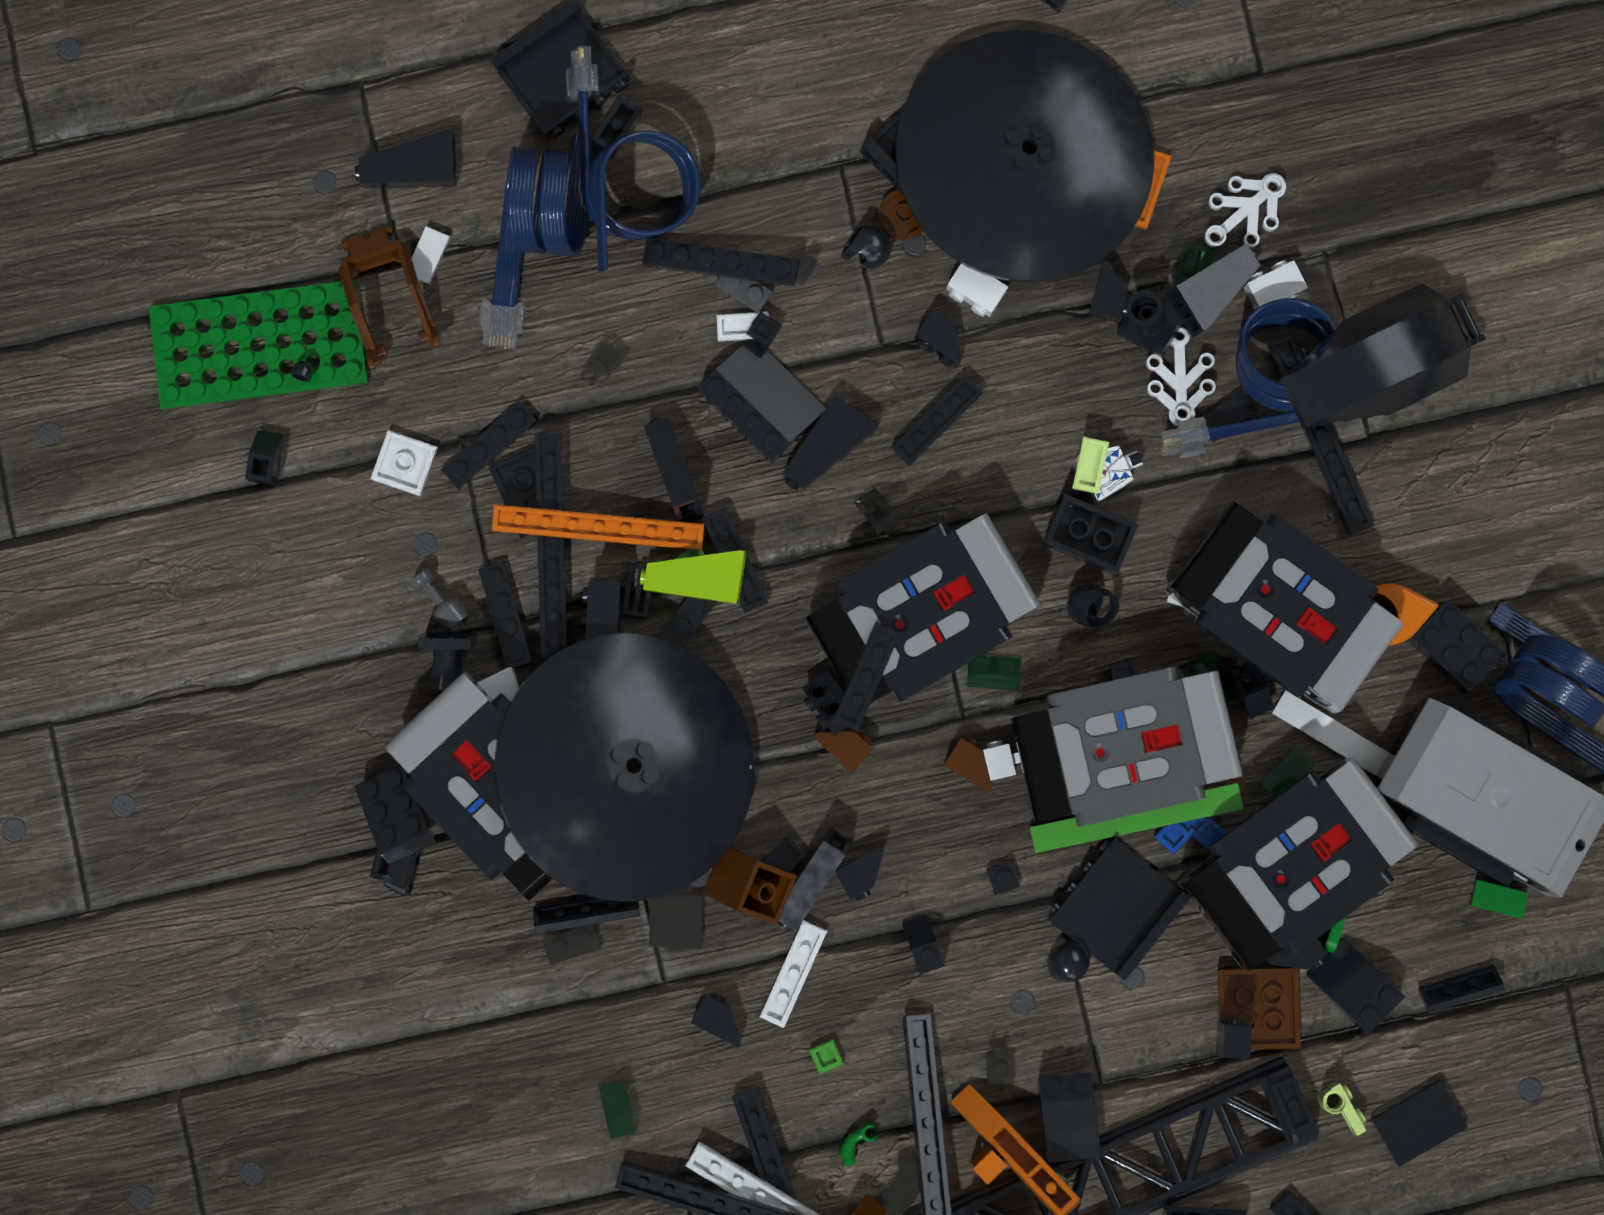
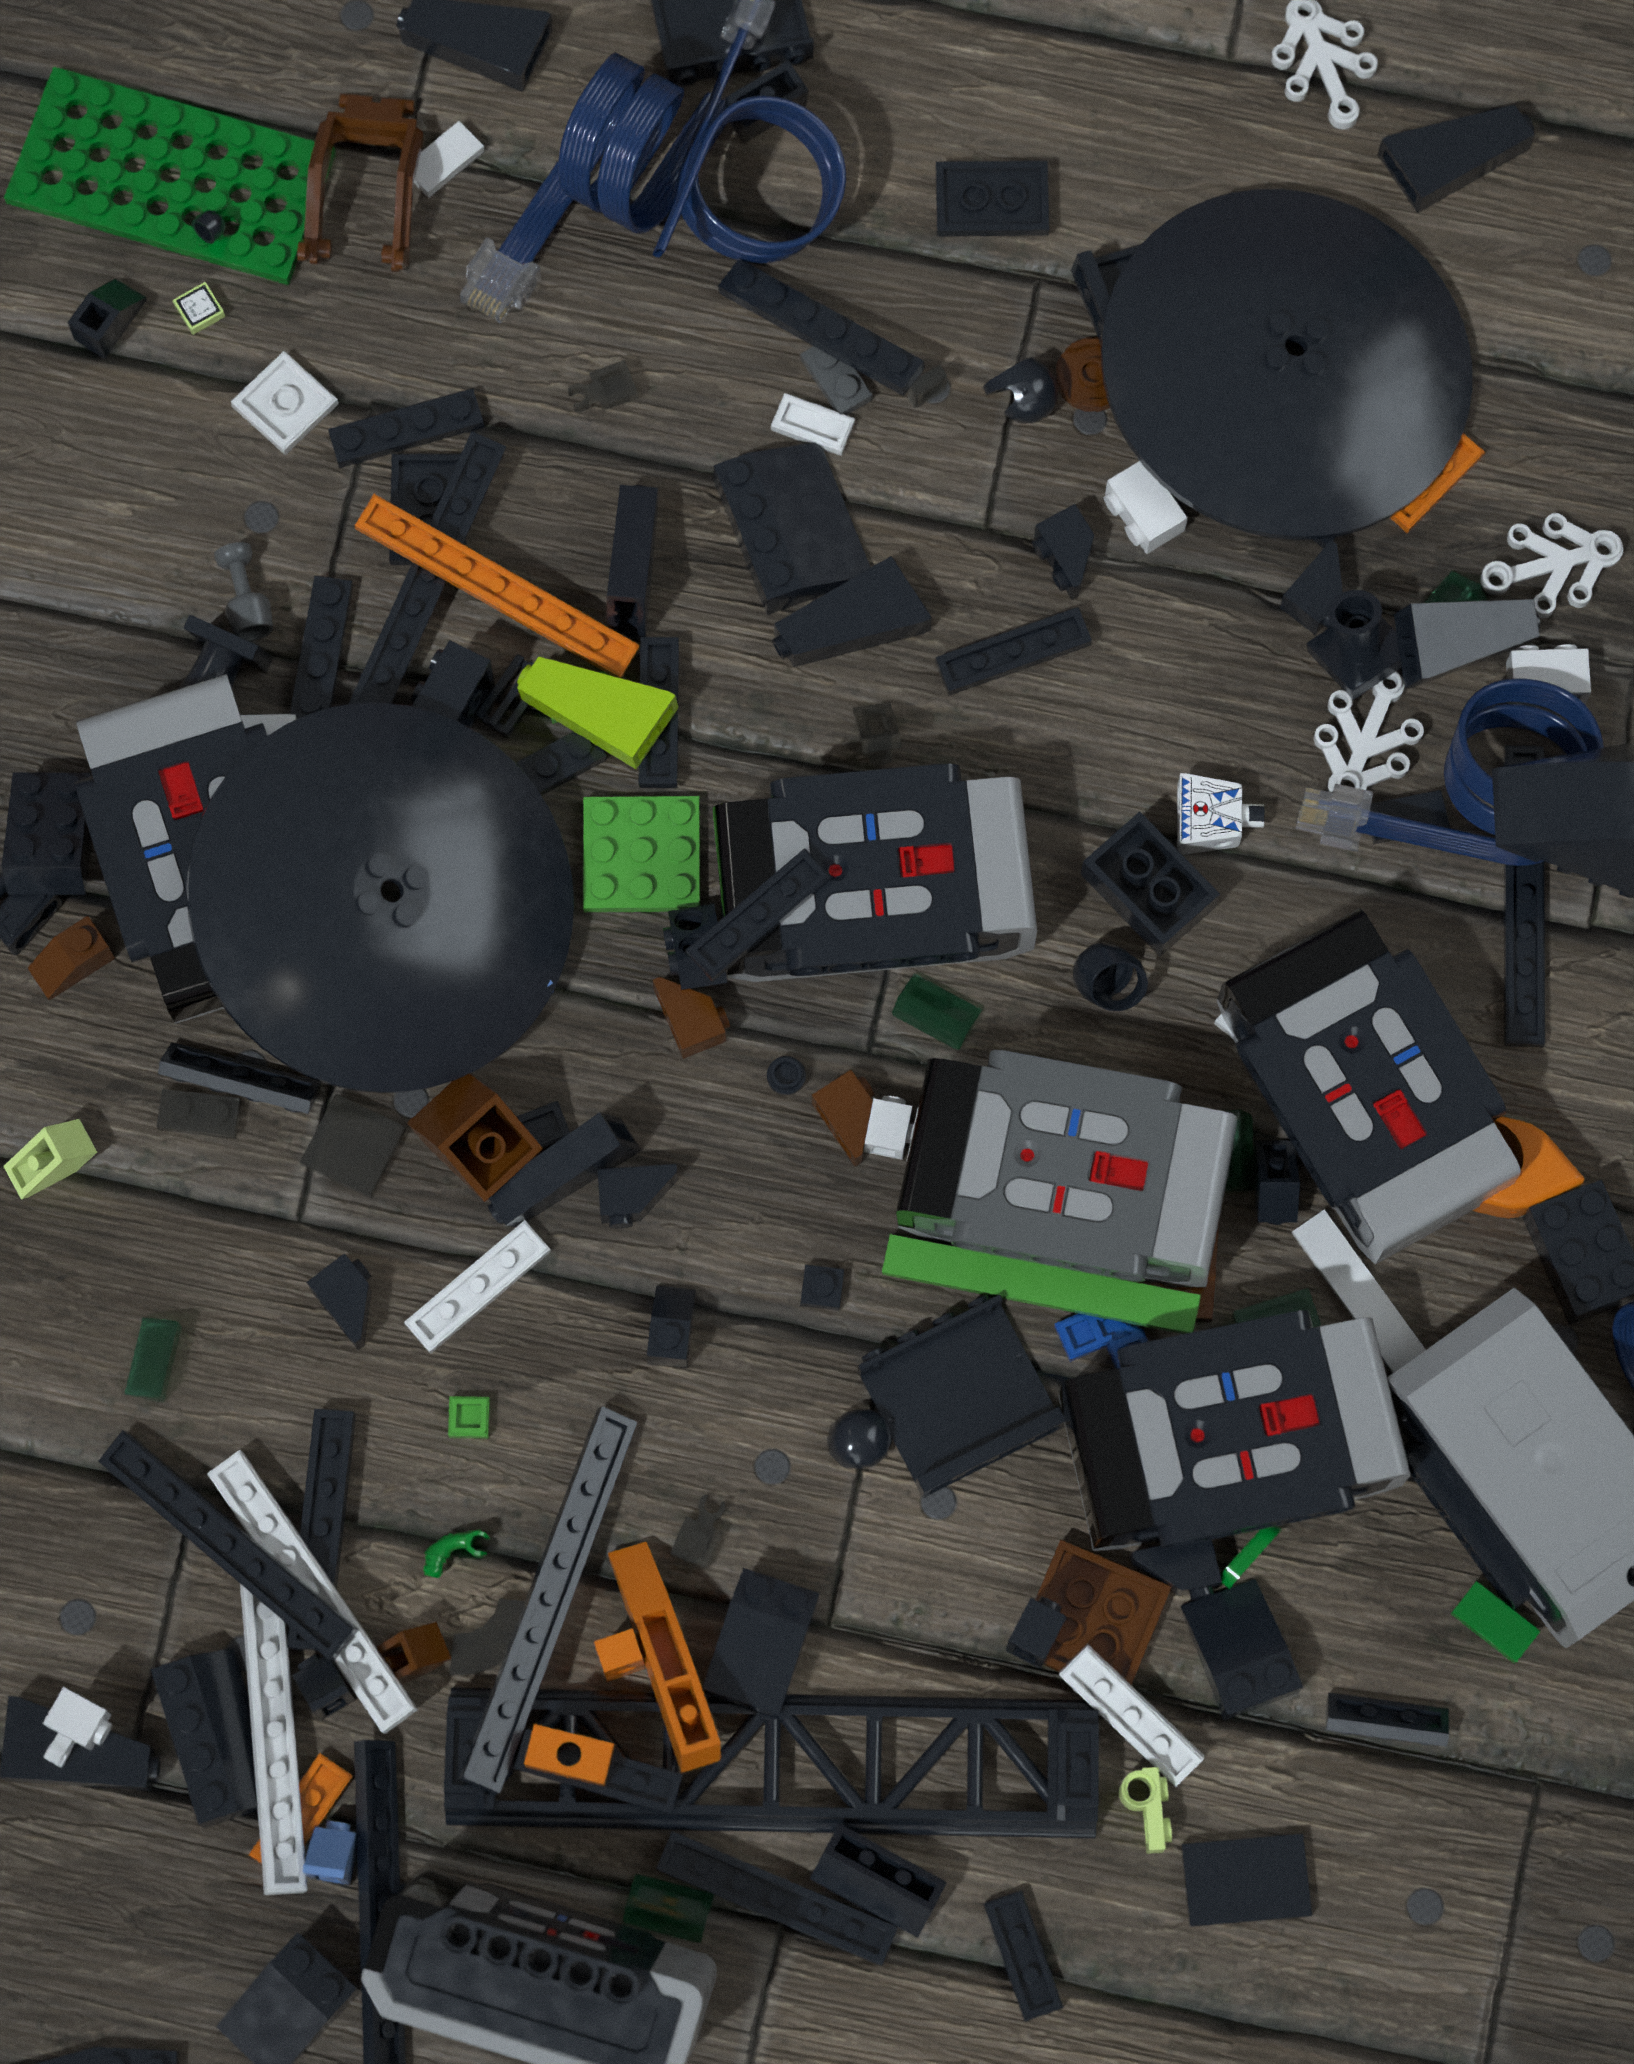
camera: 20 degrees right, 10 degrees down
(320, 425) = (198, 308): none -> tile
(445, 884) = (70, 958): none -> reddish brown slope
(494, 1015) = (50, 1157): none -> yellowish green slope
(764, 329) = (838, 436): black tile -> none
(766, 655) = (641, 853): none -> bright green plate
(788, 126) = (992, 198): none -> black plate
(920, 756) = (786, 1075): none -> black plate
(1090, 465) = (1191, 791): yellowish green tile -> none
(1308, 1057) = (1131, 1715): none -> white tile

